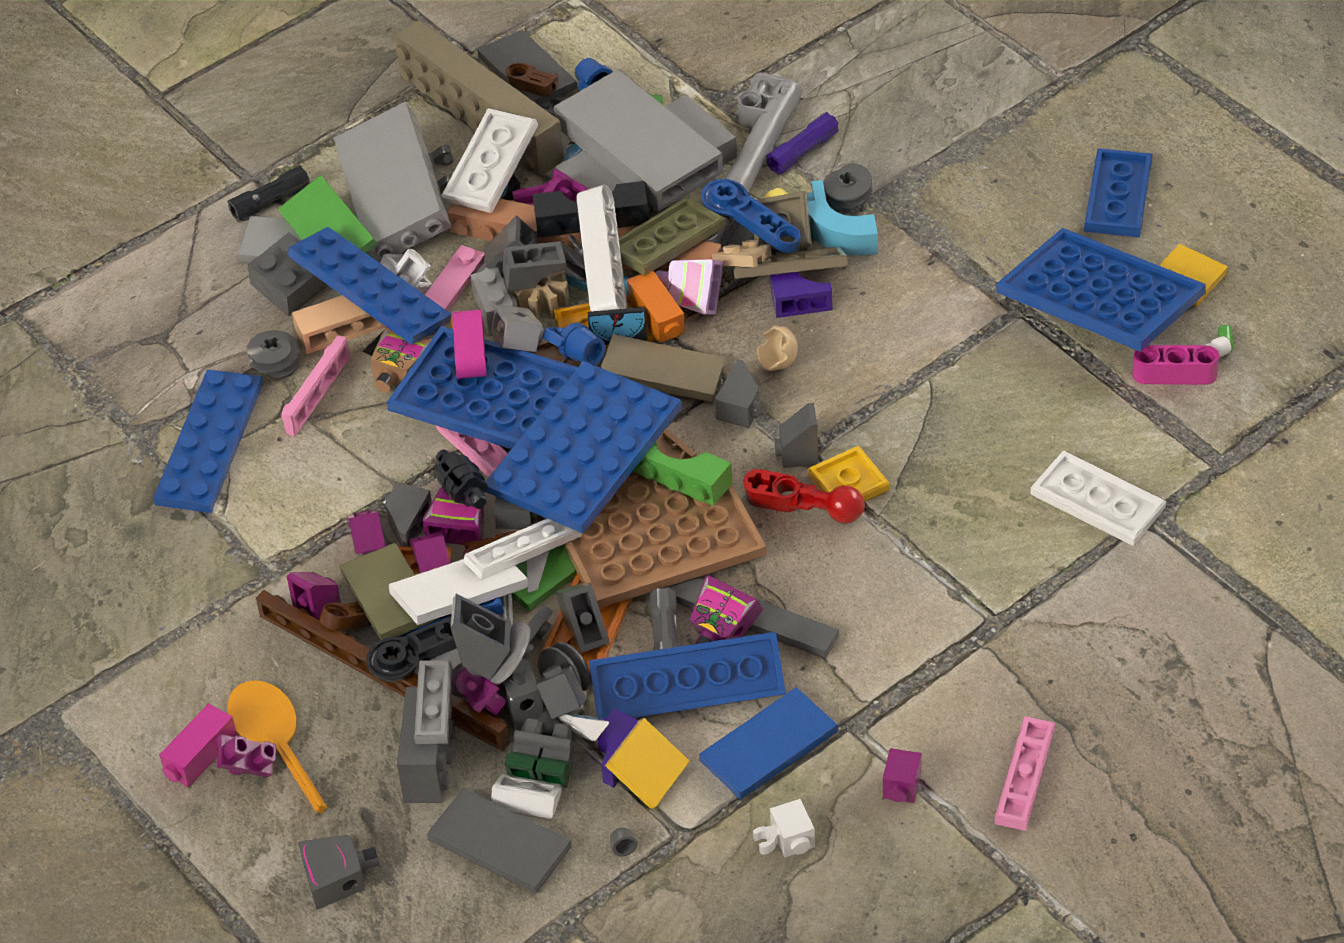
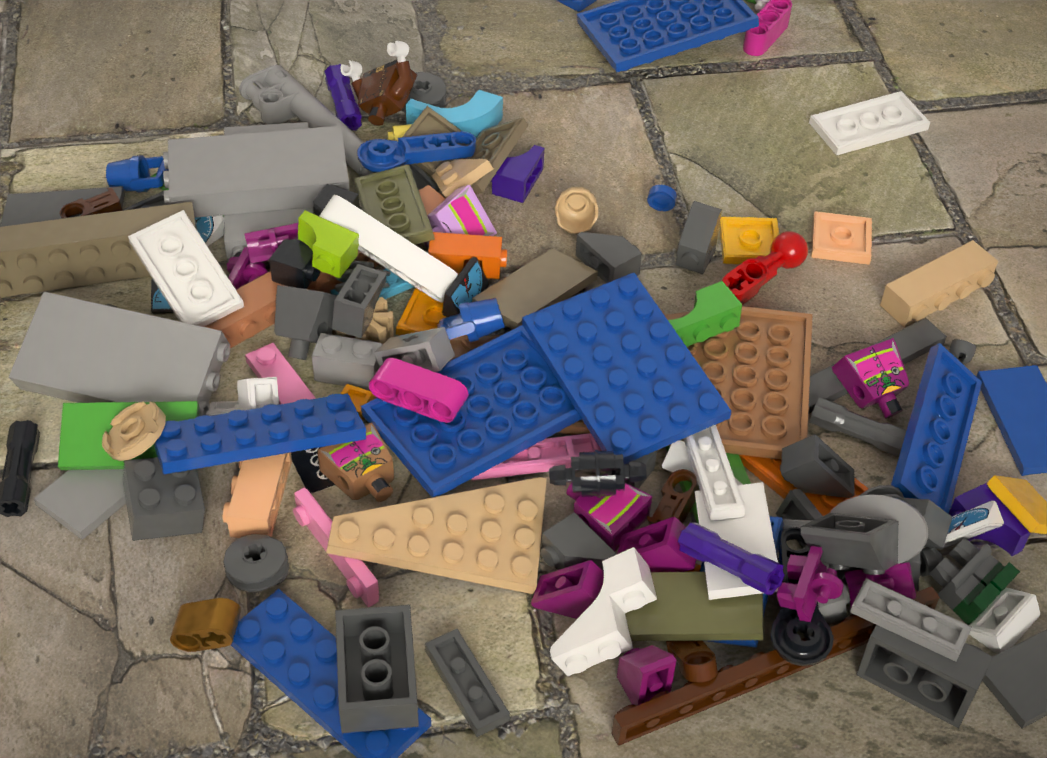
camera: 65 degrees left, 0 degrees up
(202, 354) = (205, 624): none -> pearl gold beam
(211, 447) = (376, 669): none -> dark grey brick
(251, 509) = (467, 682): none -> dark grey plate
(312, 222) = (134, 431): none -> tan tile
(338, 549) = (603, 627): none -> white arch
(365, 438) = (466, 536): none -> tan wing
(411, 589) = (751, 568): none -> dark purple axle
(425, 631) = (814, 584): none -> magenta hips
(561, 215) = (331, 244): none -> lime arch
(815, 668) = (963, 350): none -> dark grey hinge
(821, 157) = (383, 88): none -> reddish brown torso
(846, 397) = (662, 198): none -> blue tile
(889, 622) = (939, 283): none -> tan brick
(906, 538) = (841, 238): none -> light nougat tile

